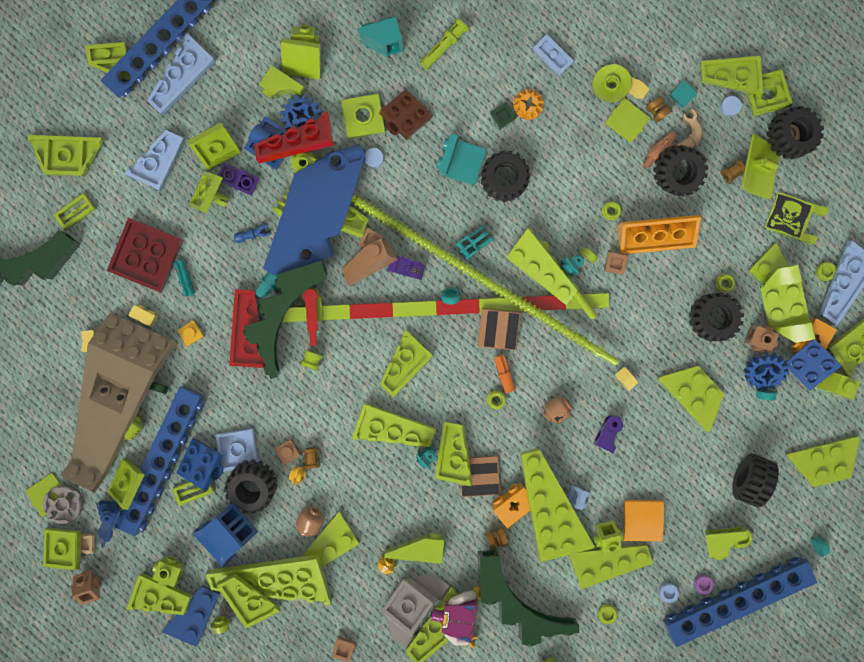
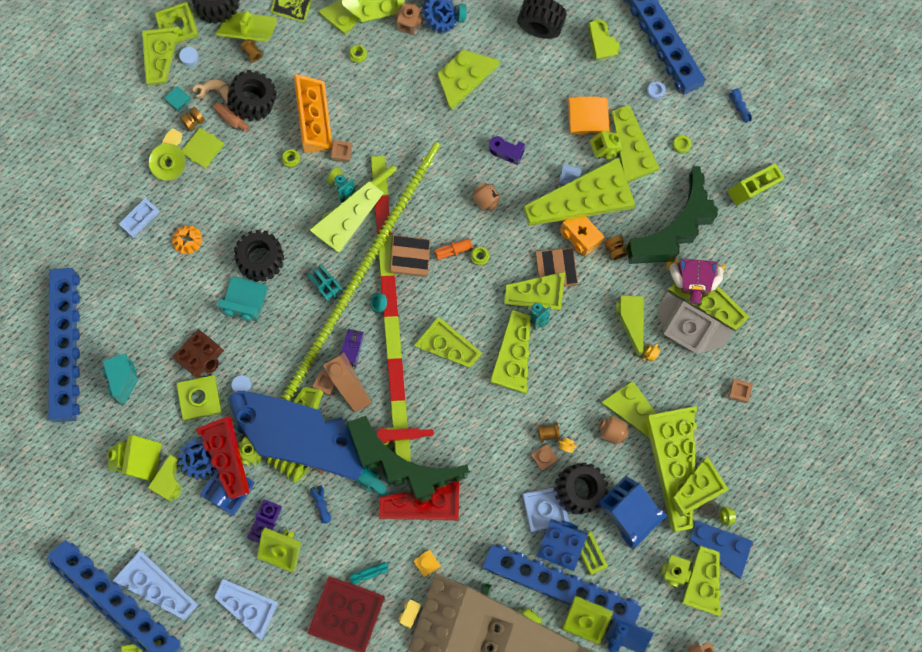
camera: 95 degrees left, 15 degrees down
(214, 146) = (230, 543): lime tile -> none
(311, 360) = (448, 436): lime wheel -> none
(449, 38) = (121, 316): lime pin -> none
(503, 115) = (198, 262): dark green tile -> none
(626, 378) = (453, 136): light yellow piece -> none
(703, 584) = (645, 59): medium lavender tile -> none
(731, 312) = (395, 71): black tyre -> none

